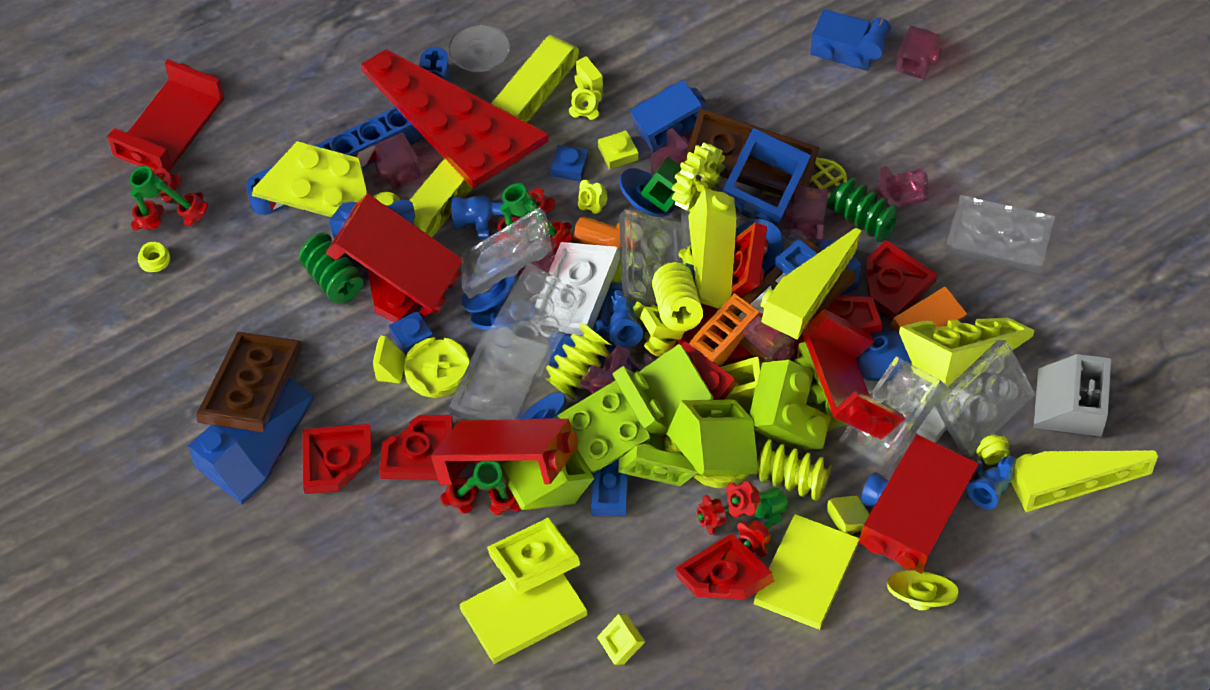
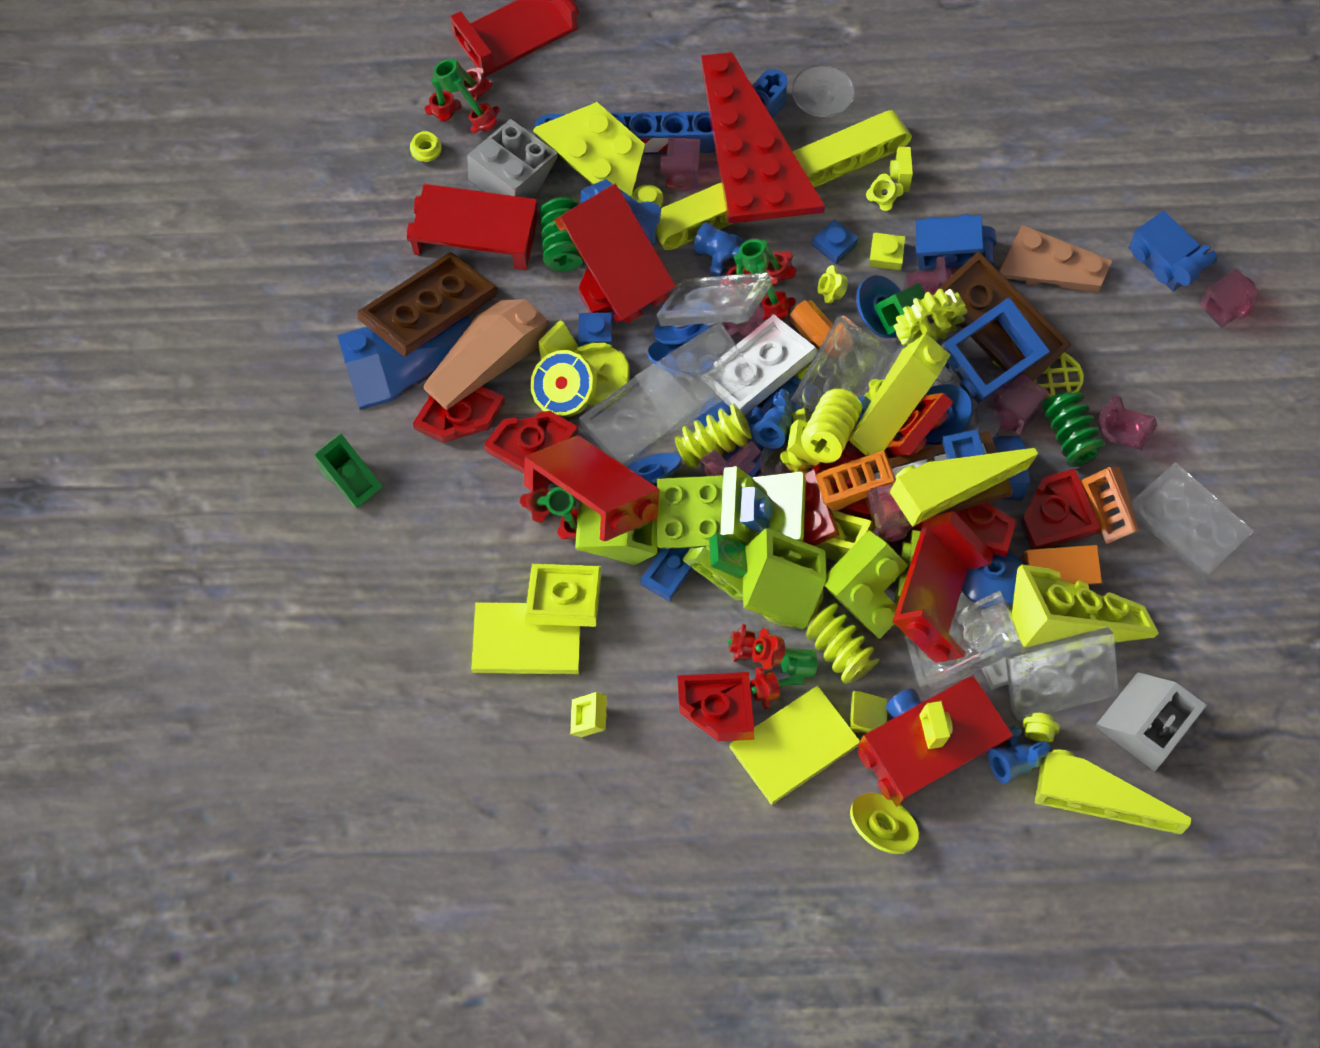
camera: 30 degrees right, 10 degrees up
(244, 295) = (474, 222): none -> red panel
(246, 234) = (511, 162): none -> light grey slope
(270, 553) = (347, 470): none -> green slope
(328, 391) = (486, 349): none -> nougat wedge
(415, 386) = (563, 383): none -> tile
(660, 442) = (728, 555): none -> green tile
(661, 393) = (755, 509): none -> plate
(754, 93) = (1048, 260): none -> nougat wing
(916, 484) = (935, 724): none -> neon yellow plate
(930, 235) = (1096, 498): none -> orange slope

